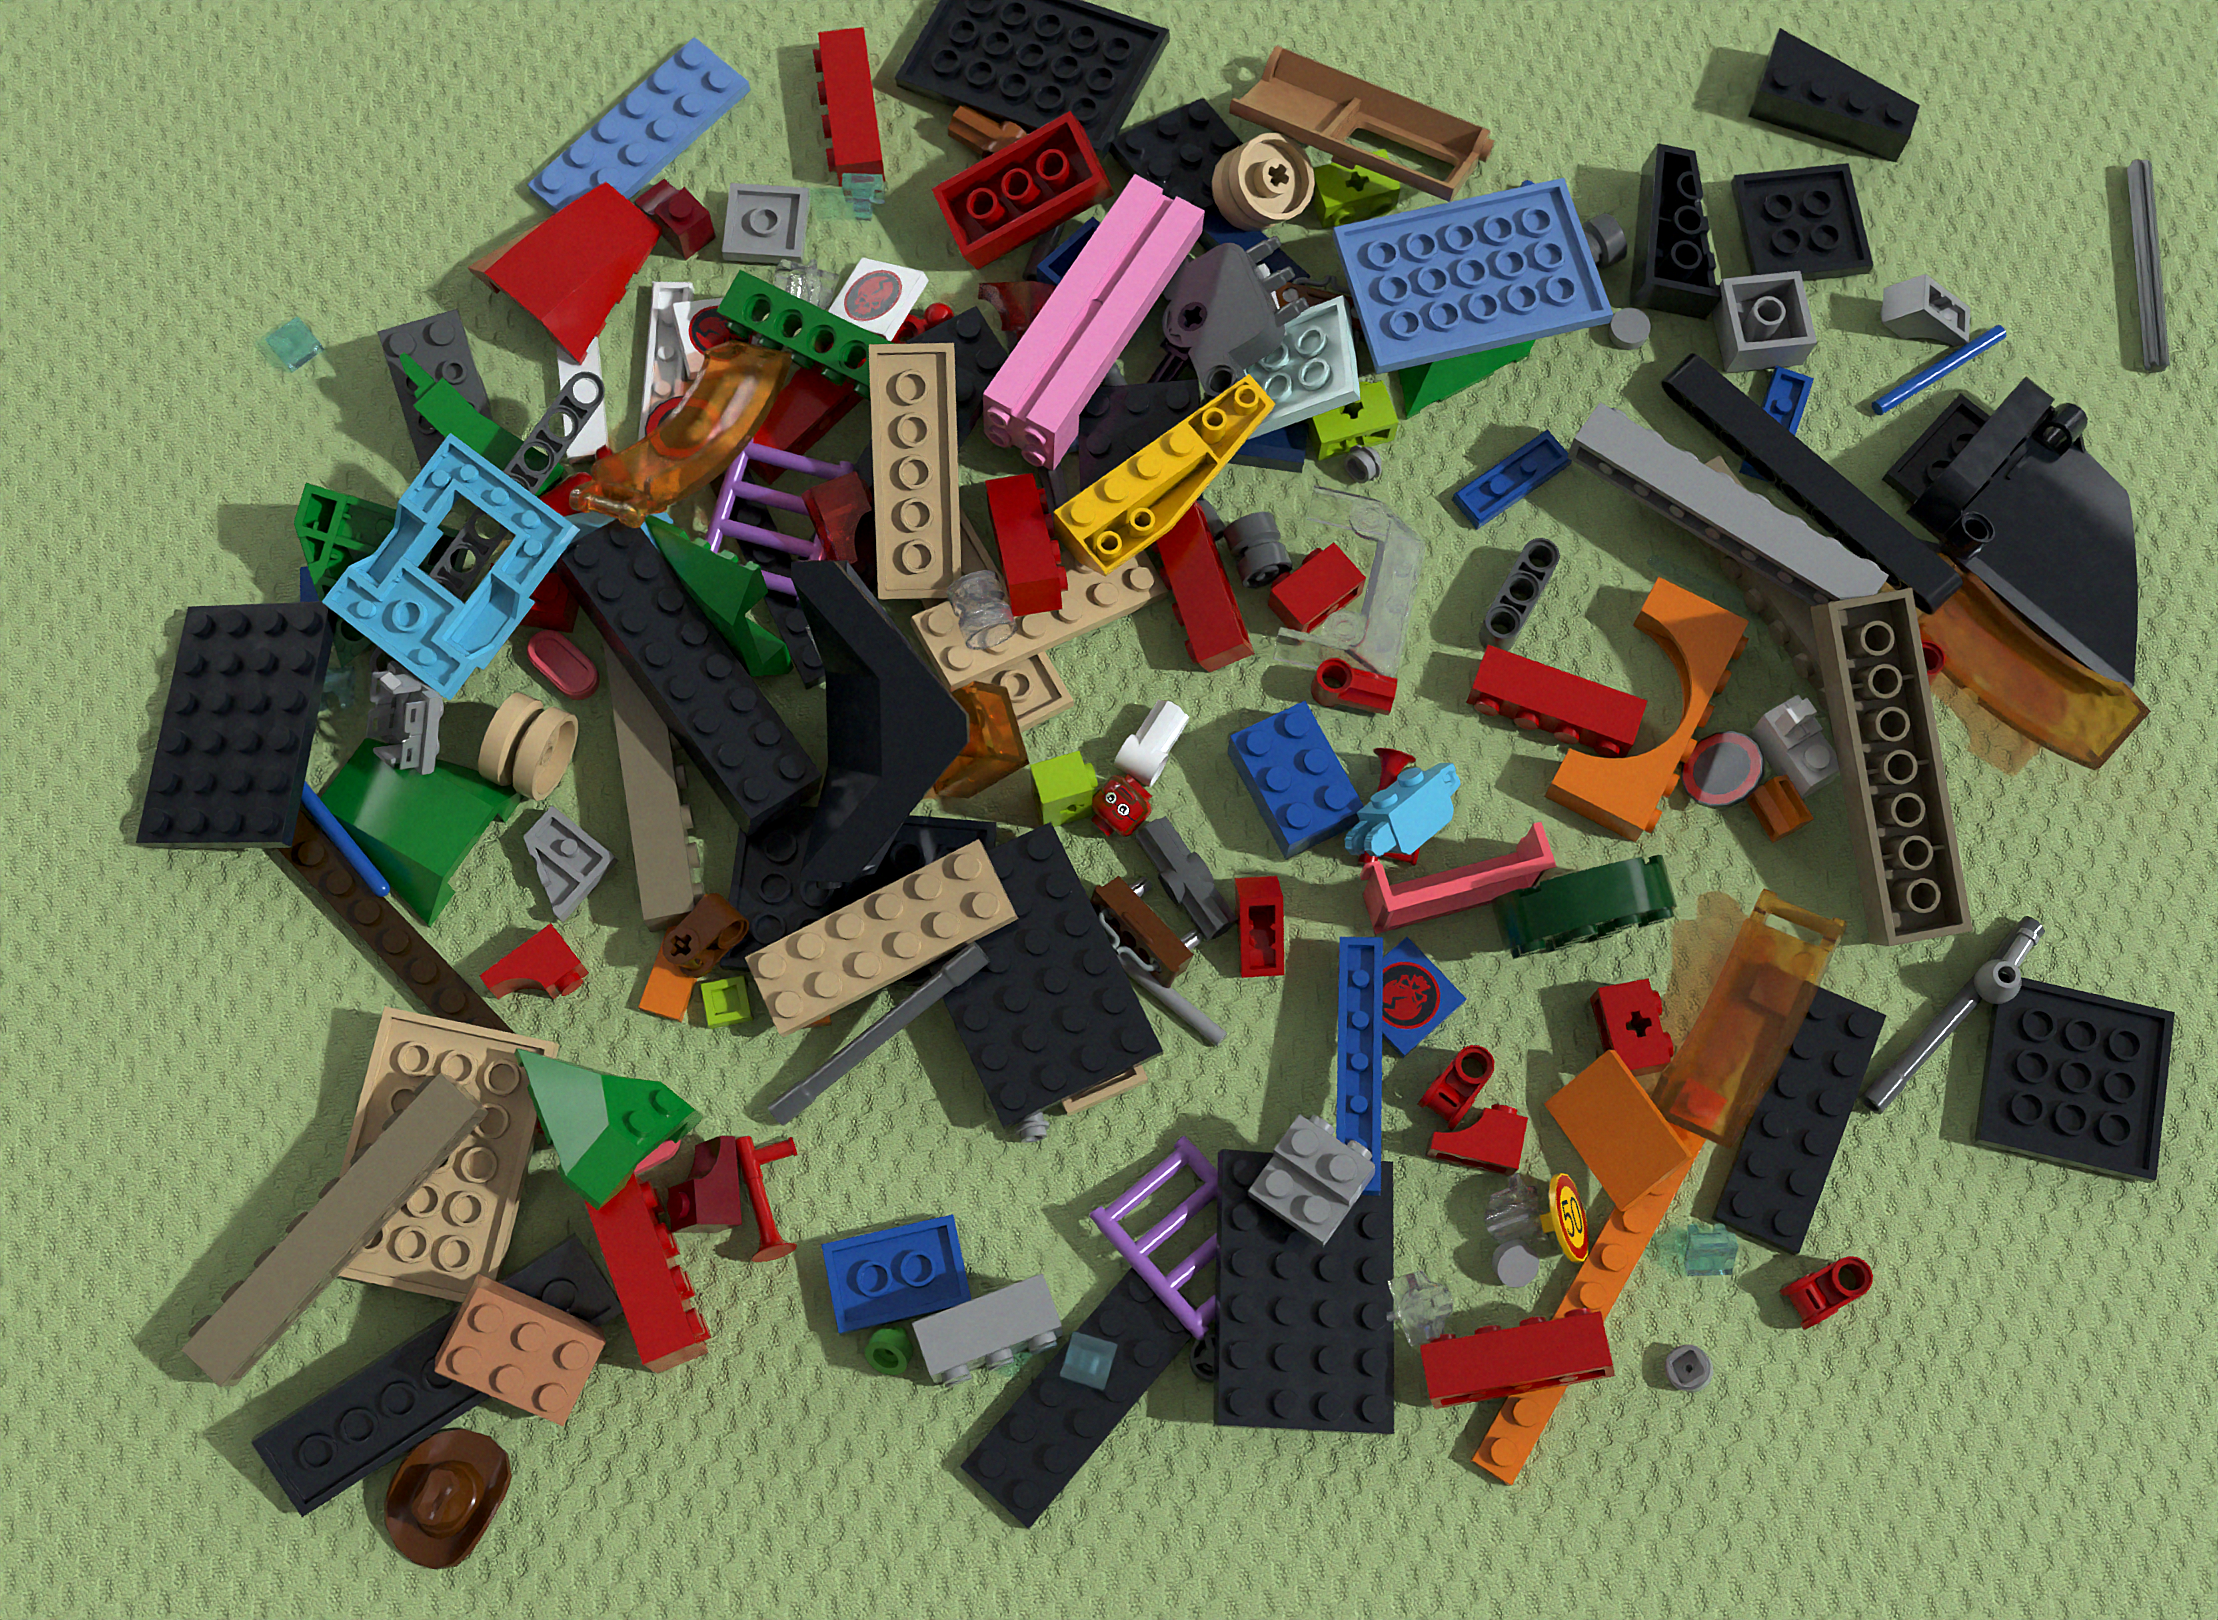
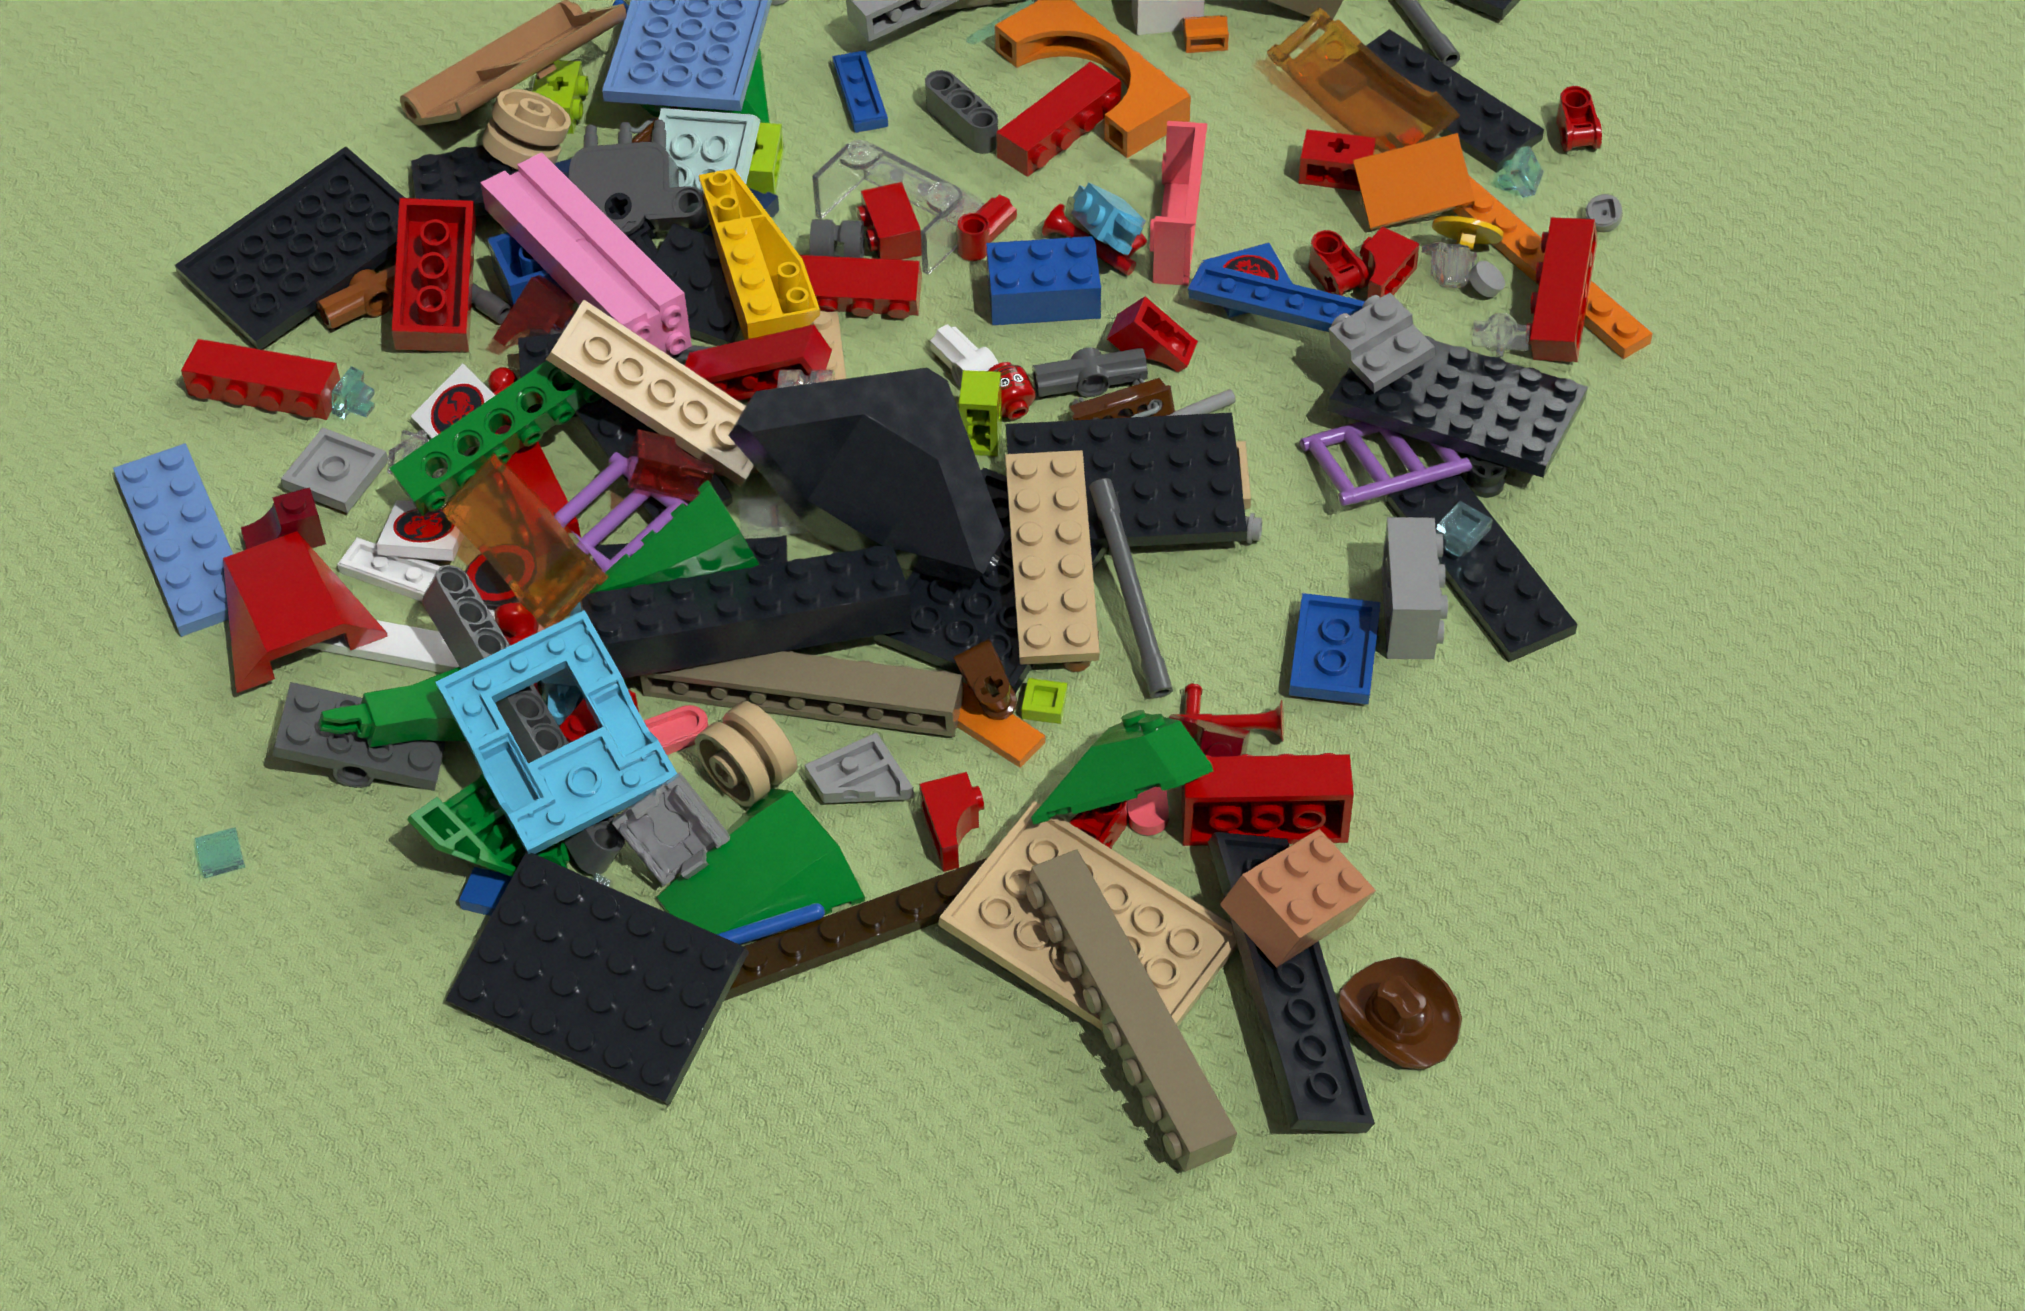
camera: 65 degrees left, 20 degrees down
(889, 1351) = (1398, 669): bright green tile -> none
(1363, 464) = (802, 171): light grey plate -> none
(1584, 906) = (1242, 128): dark green brick -> none
(1723, 770) = (1165, 43): piece -> none

